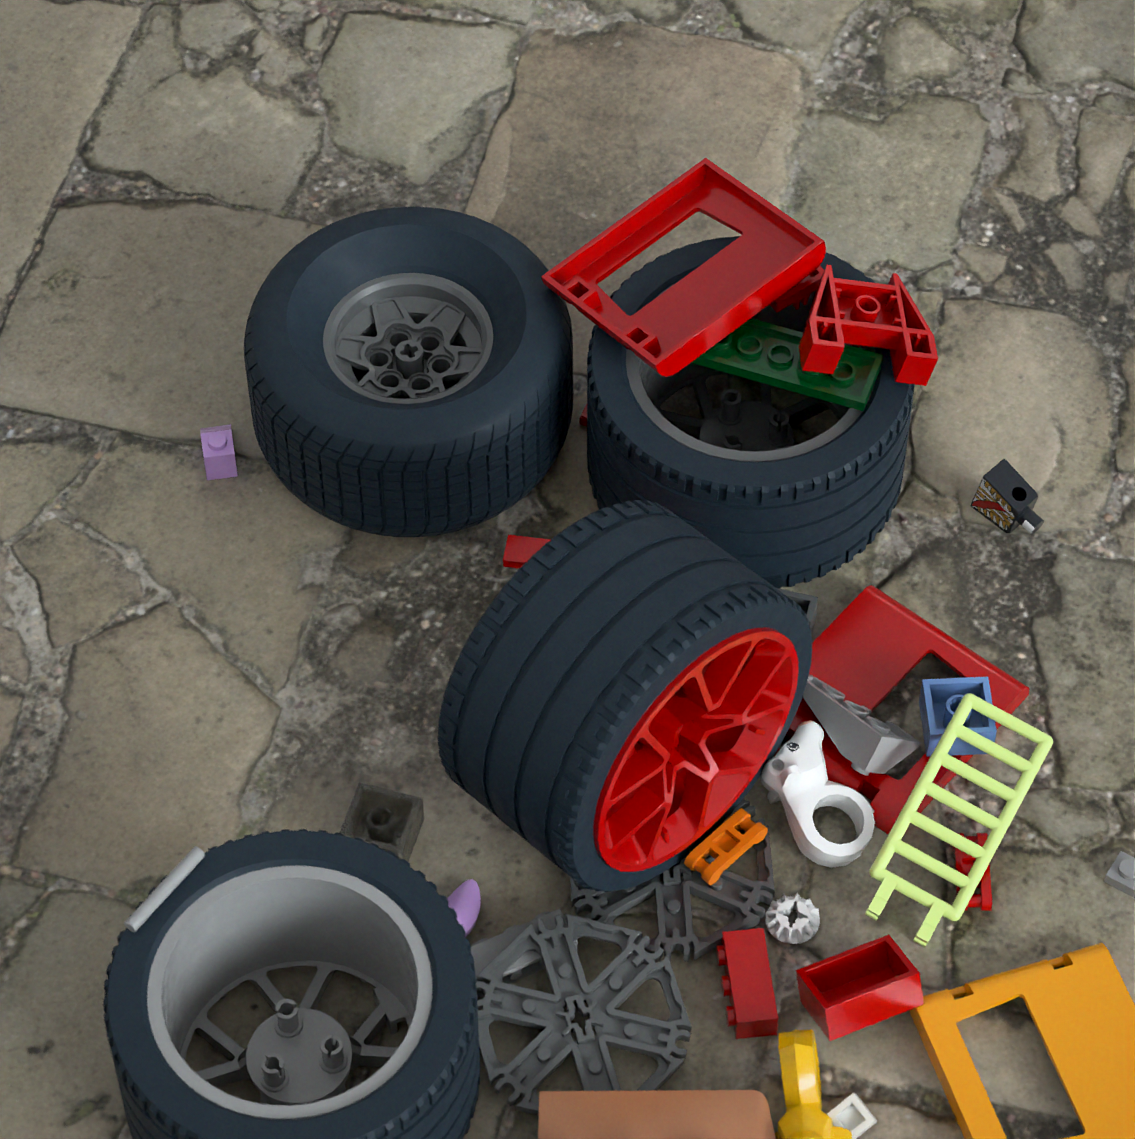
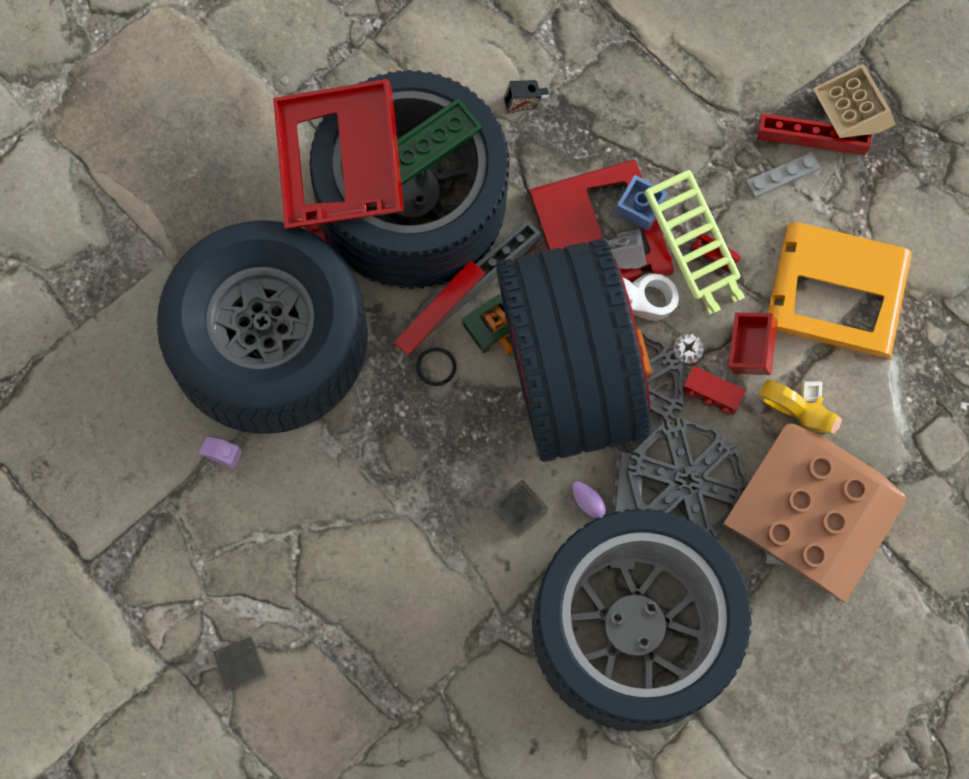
camera: 60 degrees left, 20 degrees up
(164, 889) = (552, 643): light grey bar -> none
(870, 317) = (434, 90): red wedge -> none

